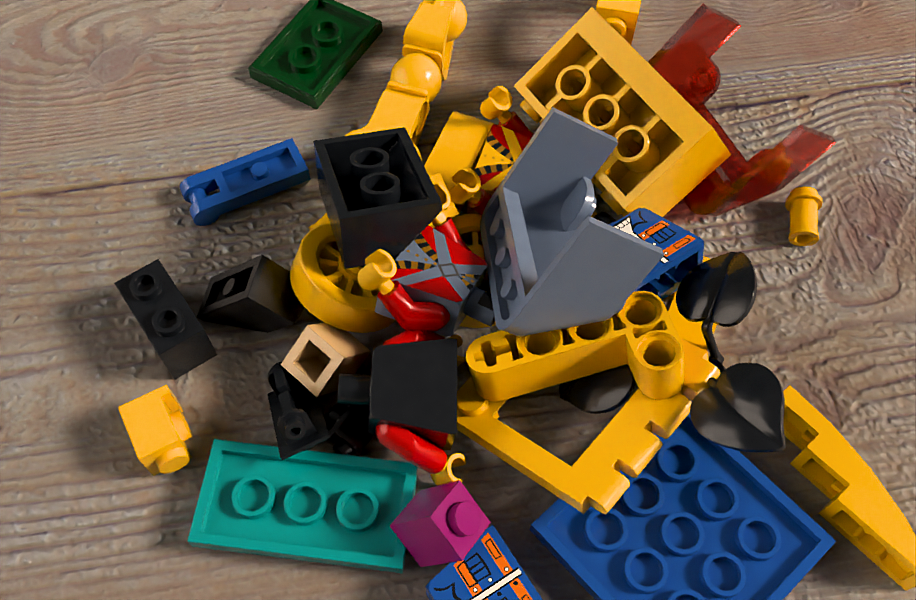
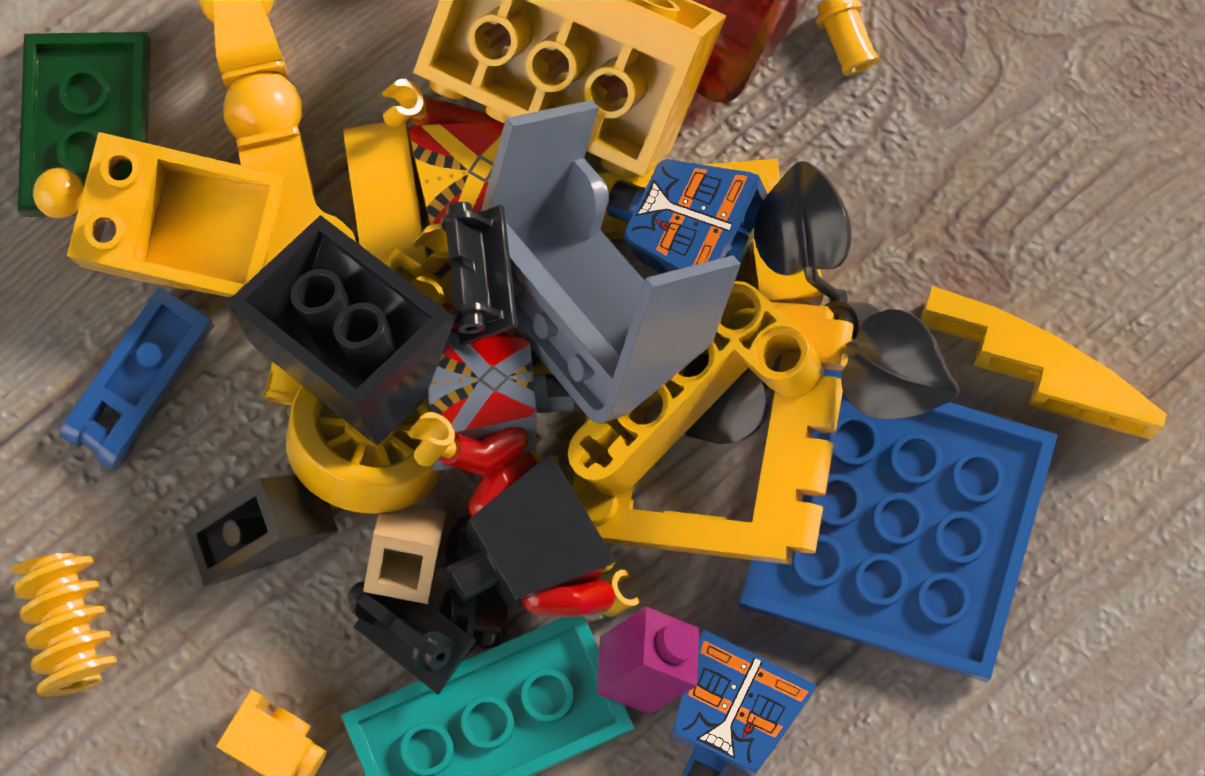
camera: 30 degrees left, 15 degrees up
(90, 285) = (62, 623): none -> yellow piece
(166, 319) = (181, 612): black brick -> none
(317, 91) = (175, 216): none -> yellow slope
(480, 201) = (479, 271): none -> black hinge

